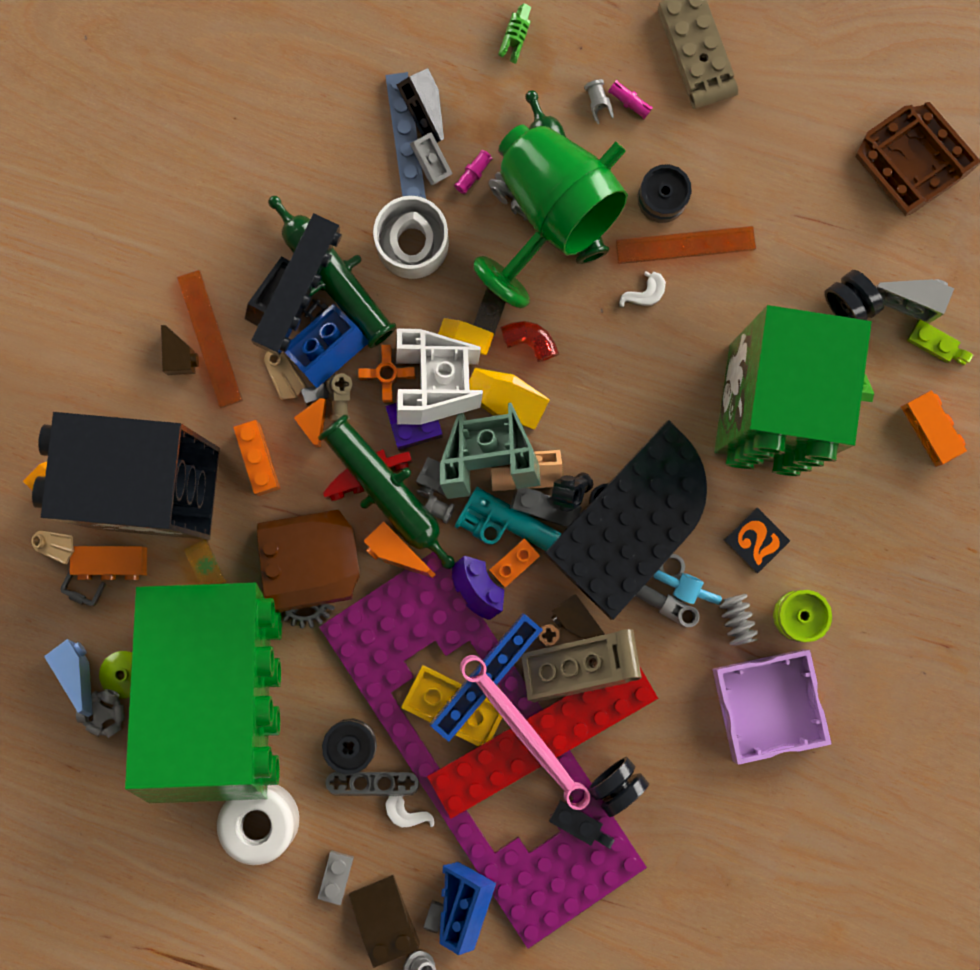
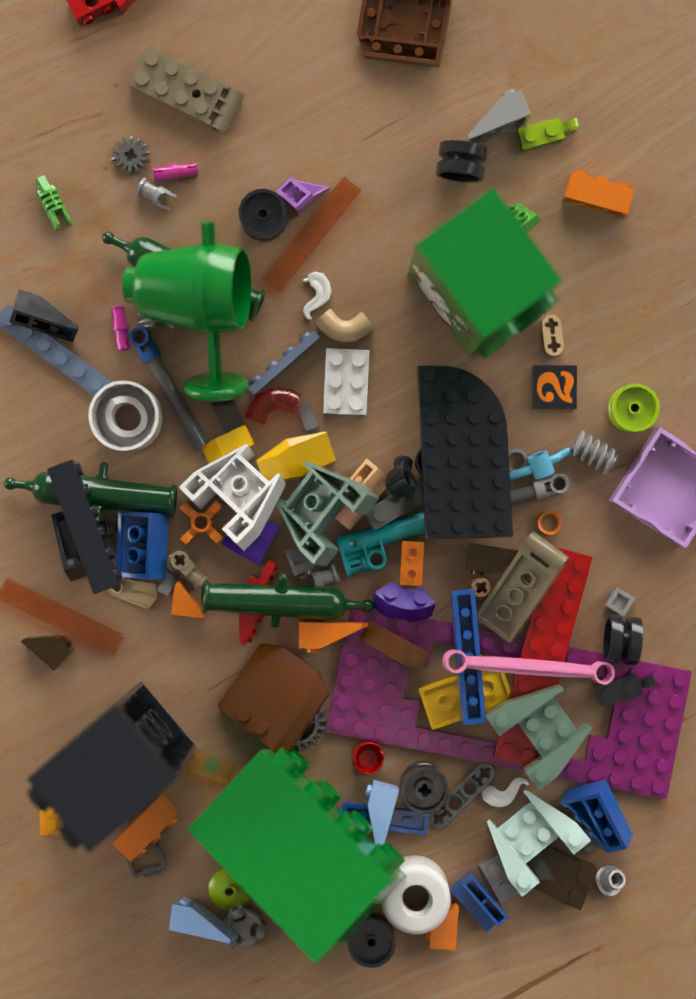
camera: 40 degrees left, 5 degrees up
(54, 545) = (104, 853): tan piece -> none
(175, 828) = (376, 952): none -> black wheel
(250, 877) = (446, 933): none -> orange slope
(256, 458) = (173, 663): orange brick -> none
(301, 726) = (381, 806): none -> light blue slope
(301, 745) = (402, 819): none -> blue plate
(301, 880) = (479, 901): none -> blue piece
(330, 679) = (367, 758): none -> red hair
(392, 865) = (528, 834): none -> light aqua wedge
(431, 158) = (83, 348): light grey plate -> none
(437, 612) = (394, 646): none -> reddish brown slope
(475, 214) = (150, 355): none -> dark grey piece
(490, 794) = (546, 728): none -> sand green wedge
(546, 376) = (307, 417): none -> dark grey piece
(579, 317) = (276, 368): none -> sand blue plate
(601, 378) = (346, 381): none -> white plate
(606, 65) = (134, 164): none -> dark grey gear
(638, 338) = (344, 330): none -> tan cylinder
(644, 755) = (619, 601): none -> light grey plate
(659, 645) = (559, 522): none -> orange piece
(706, 208) = (300, 194): none -> medium lavender slope
(789, 496) = (557, 334): none -> tan beam

